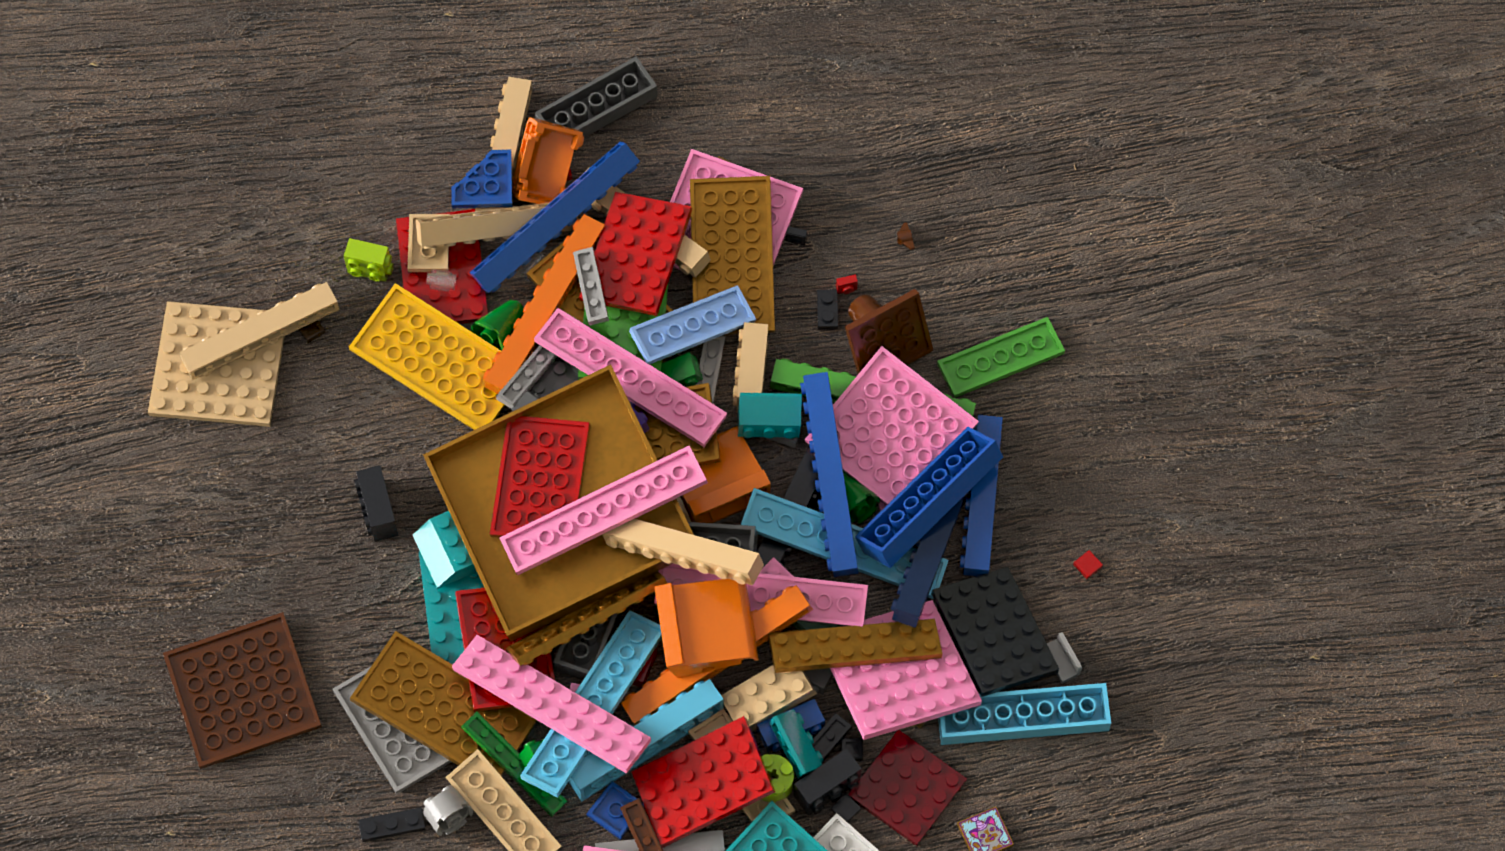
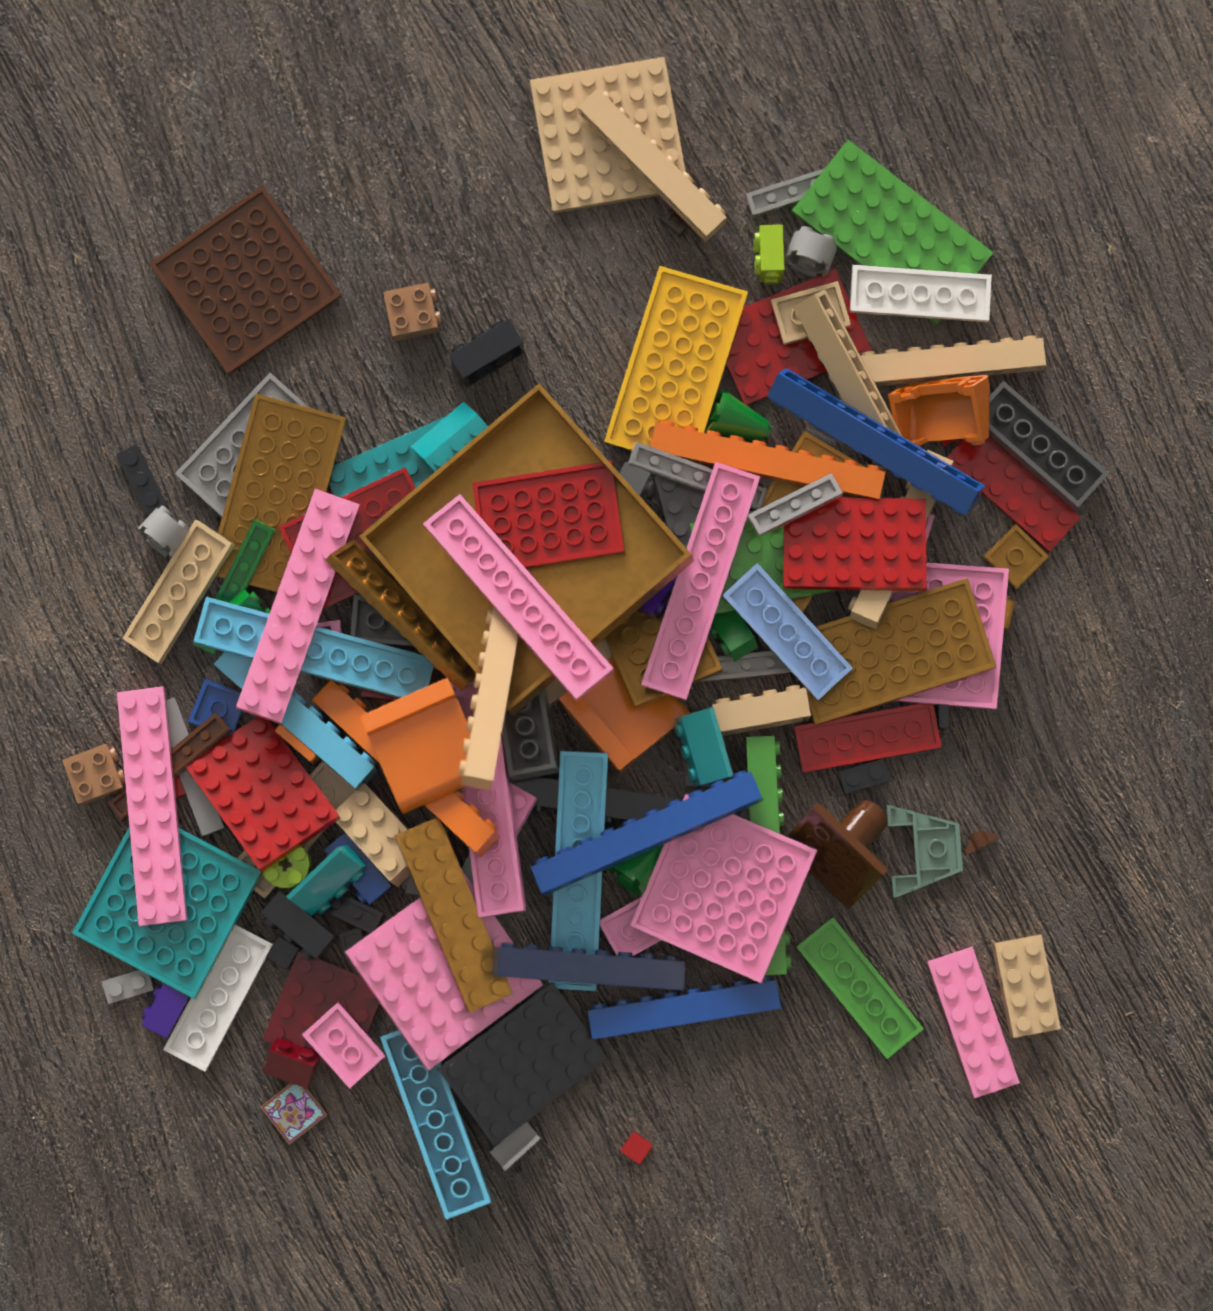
camera: 80 degrees right, 15 degrees up
(318, 233) = (780, 194): none -> light grey plate
(319, 557) = (412, 311): none -> medium nougat brick
(377, 227) = (811, 252): none -> light grey brick
(380, 167) = (884, 220): none -> bright green plate
(440, 156) = (920, 293): none -> white plate
(441, 280) = (768, 340): clear brick -> none
(486, 183) = (899, 353): blue plate -> none
(635, 128) = (1015, 491): none -> red plate
(670, 742) = (297, 744): none -> orange tile
(677, 146) = (1018, 554): none -> pearl gold tile
(796, 297) = (867, 737): none -> red plate
(846, 284) = (898, 790): red plate -> none
(901, 270) = (935, 849): none -> sand green wing
(929, 497) = (651, 951): blue brick -> none
(940, 772) = (344, 1045): none -> bright pink plate
(944, 821) = (291, 1063): none -> dark red brick
(1033, 232) = (1026, 986): none -> tan brick
(1051, 281) = (973, 1022): none -> bright pink plate

